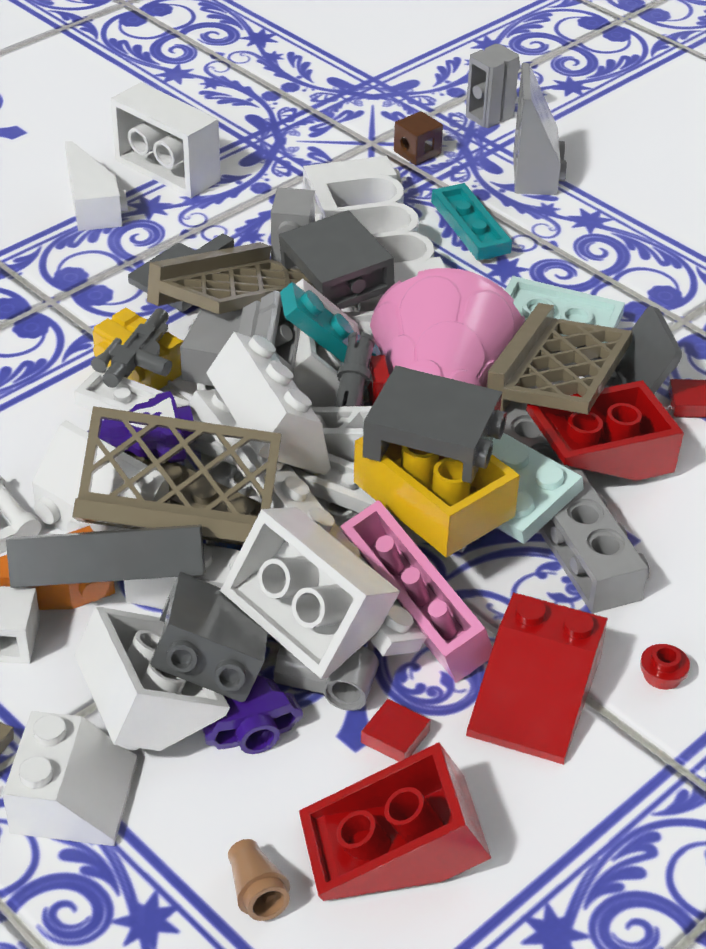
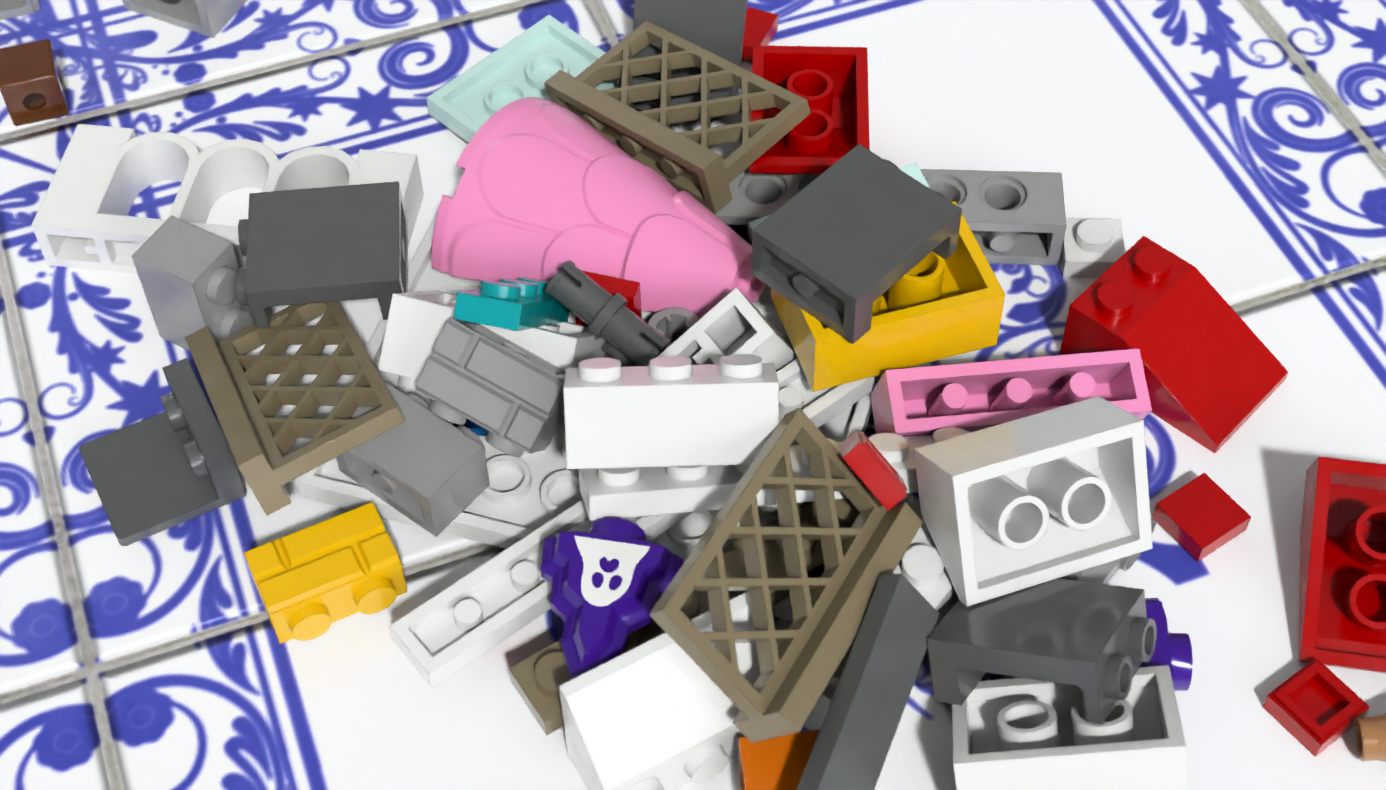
camera: 65 degrees left, 10 degrees up
(139, 350) = (389, 560): dark grey piece -> none
(264, 822) = (1315, 706): none -> red tile
(275, 491) = (873, 469): none -> red tile
(471, 221) = (265, 98): teal plate -> none
(623, 623) = (1091, 246): none -> white plate
(664, 666) = (1180, 229): red plate -> none

